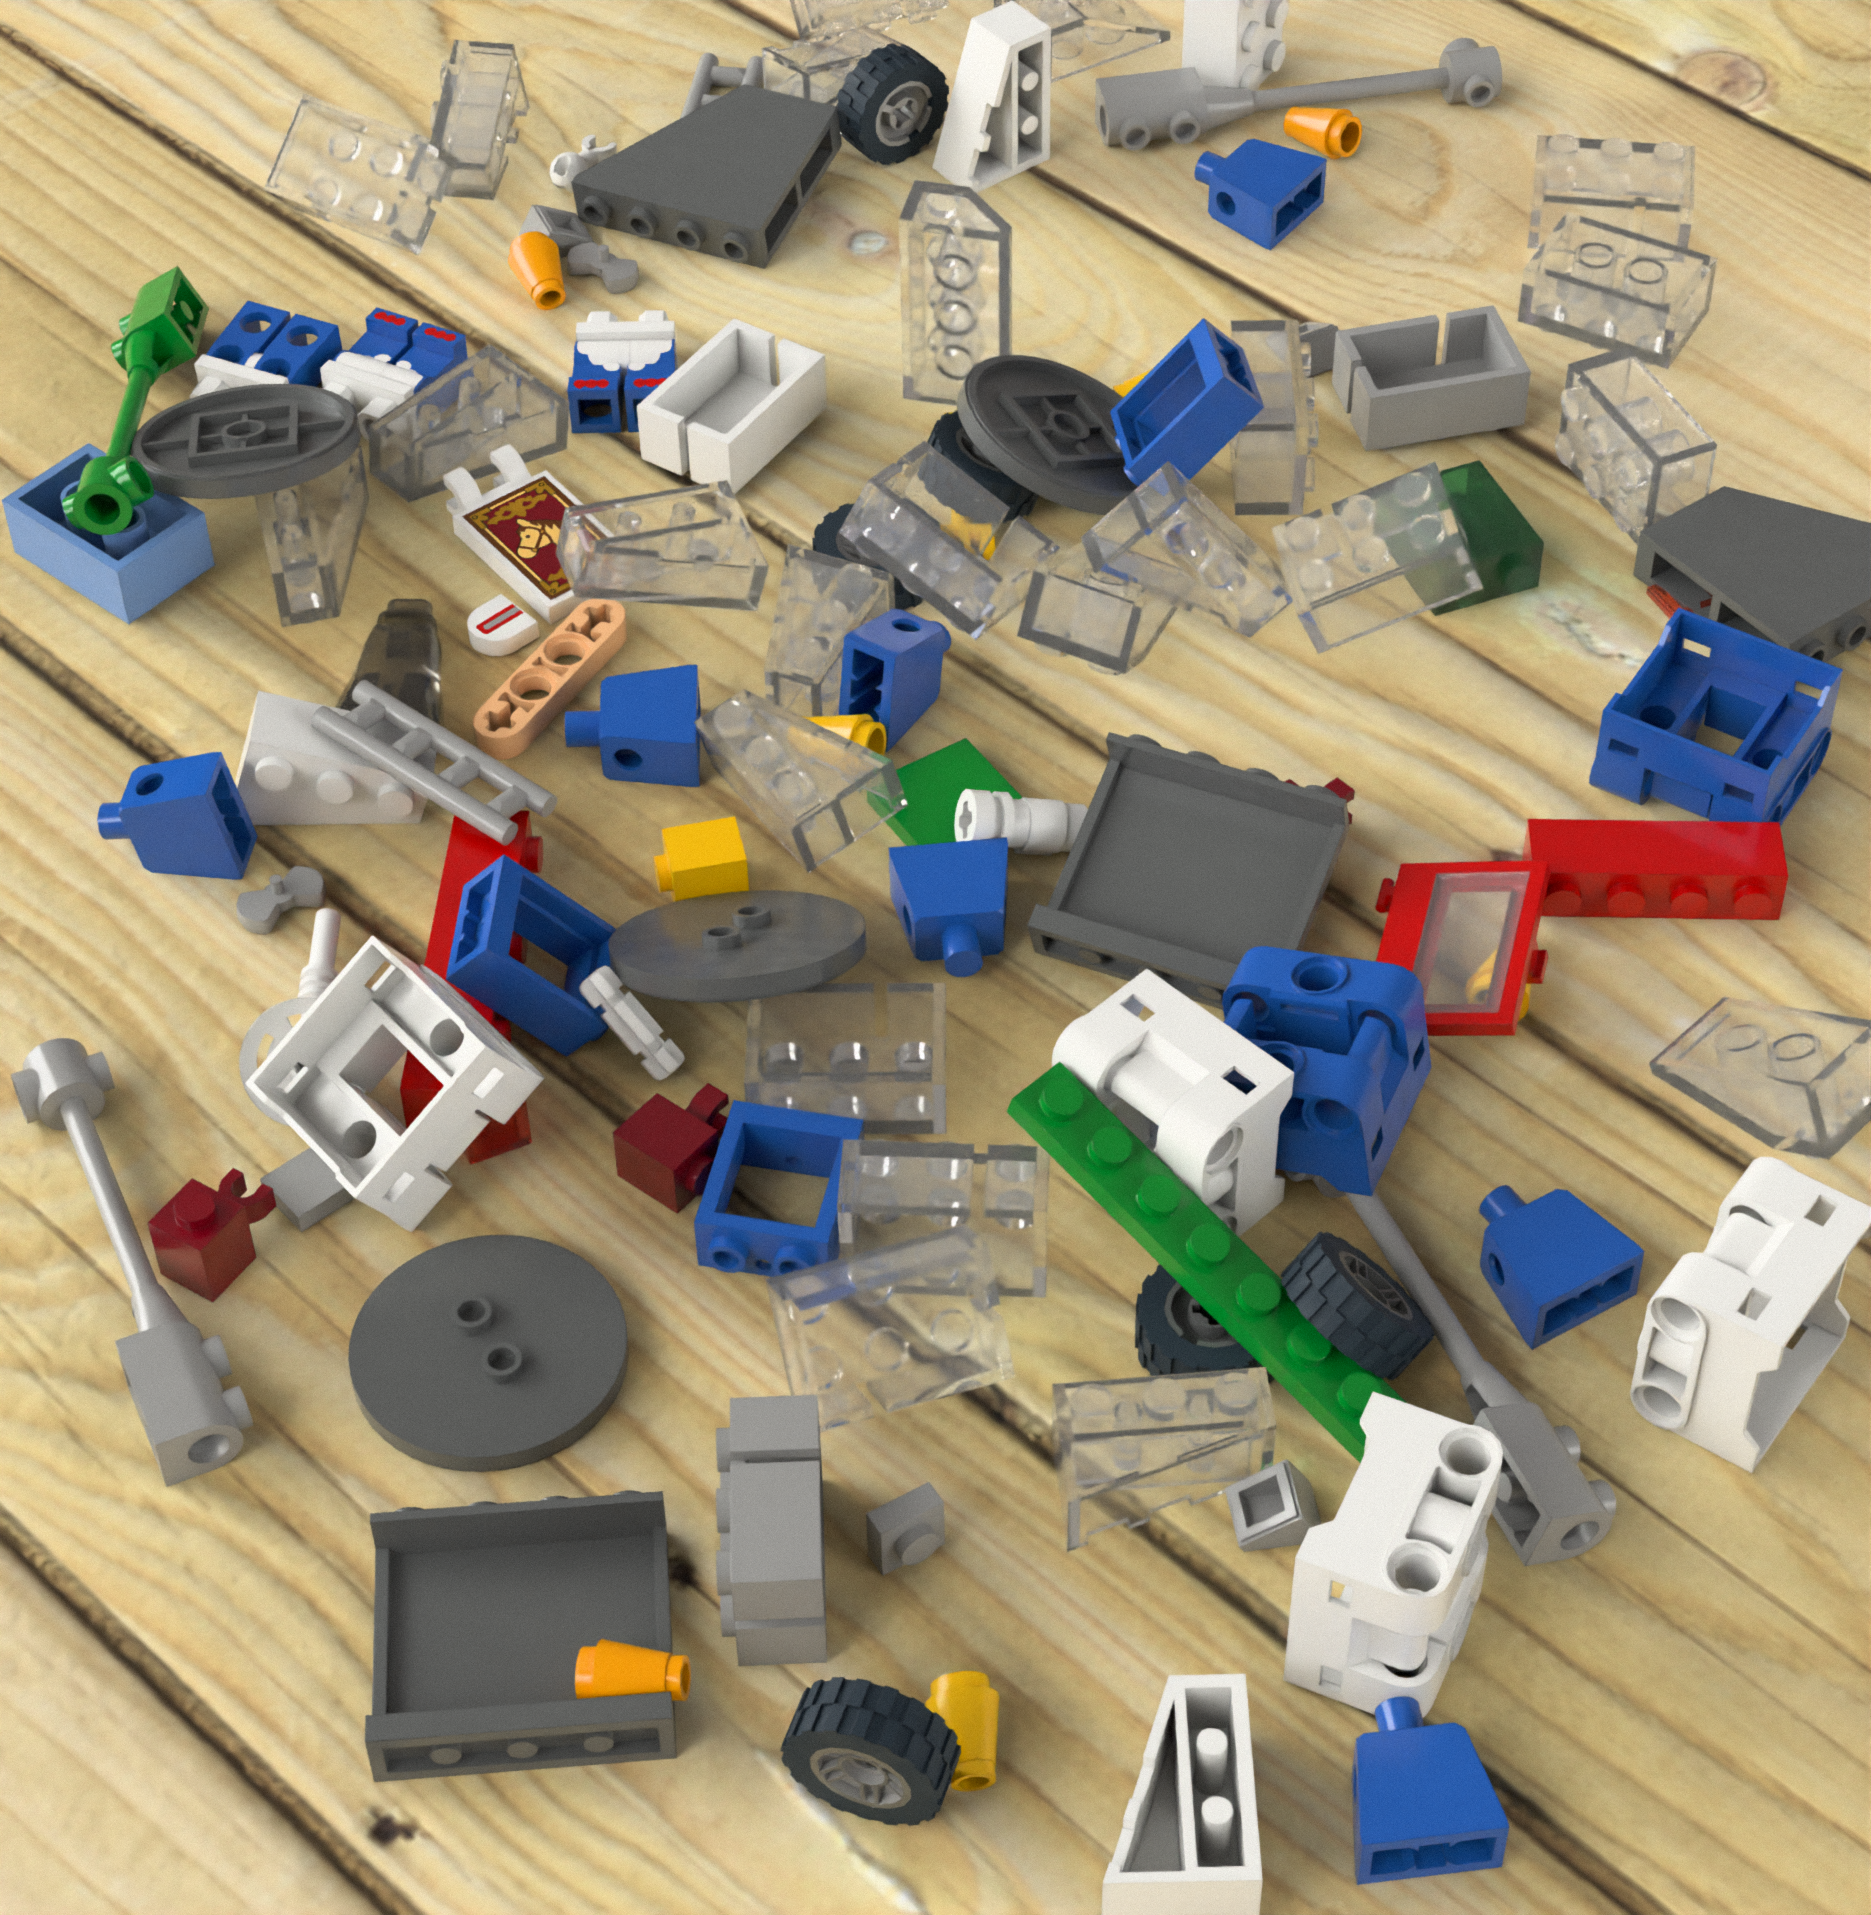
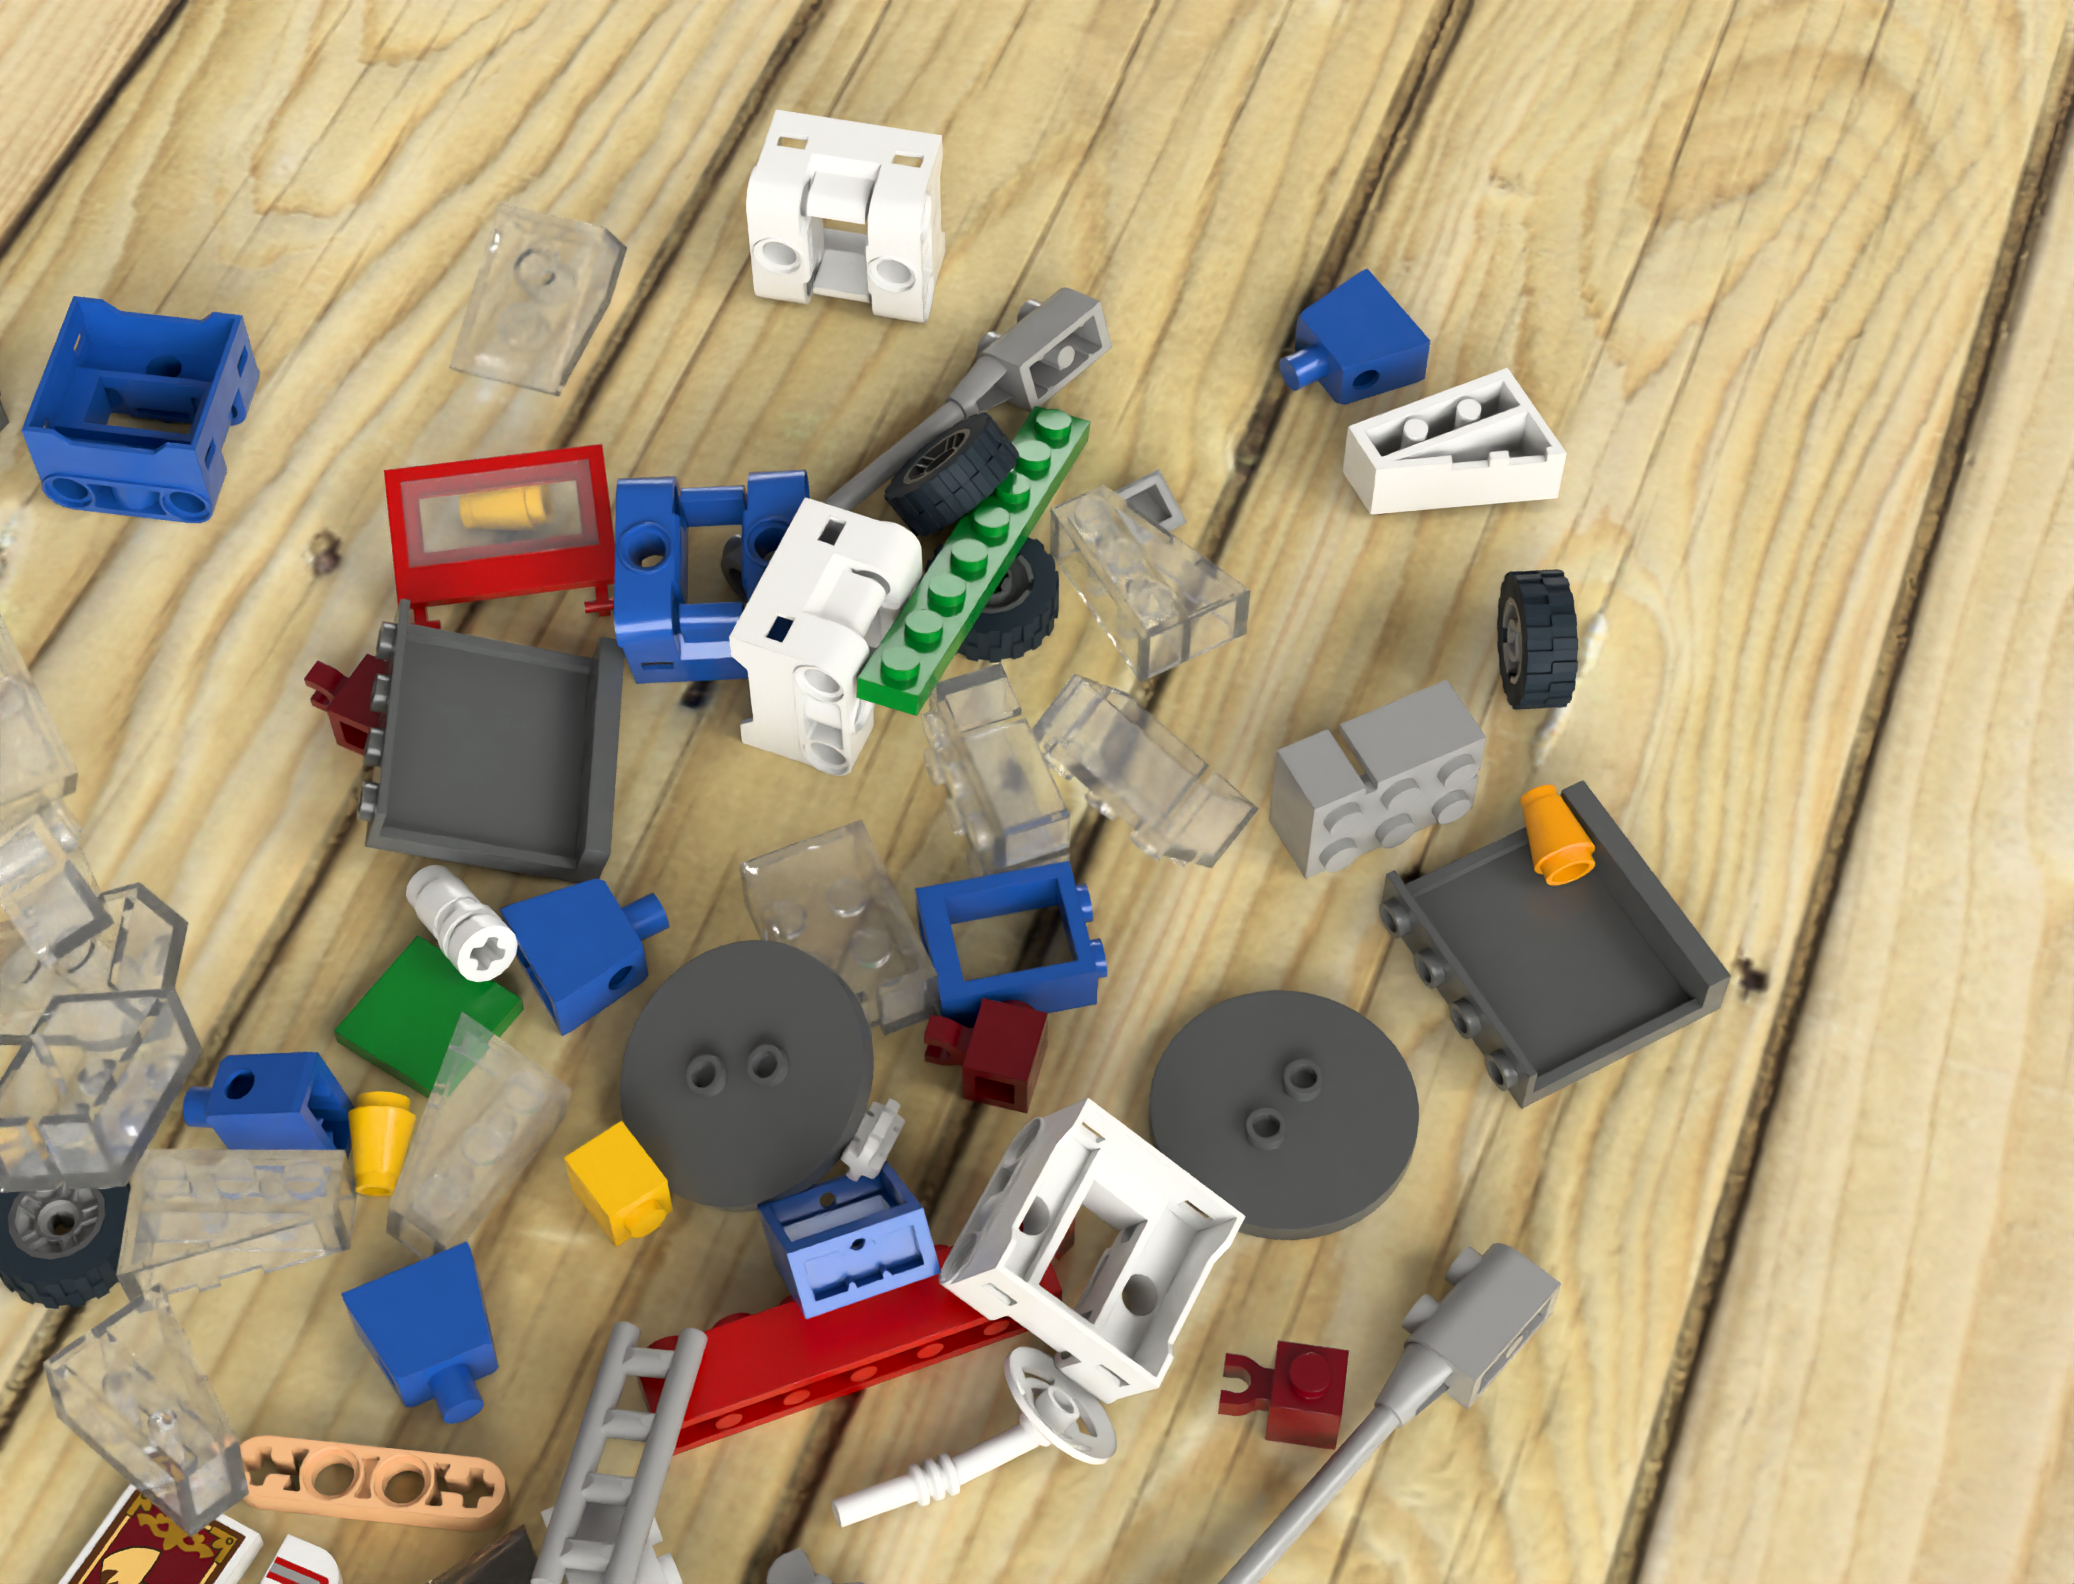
camera: 115 degrees left, 10 degrees up
(306, 1189) = (1194, 1362): light grey tile -> none
(906, 1529) = (1302, 713): light grey plate -> none
(972, 1712) = (1451, 623): yellow cone -> none
(1408, 1556) = (1204, 359): white piece -> none
(1554, 1261) = (818, 392): blue torso -> none
(1660, 868) = (323, 434): red brick -> none

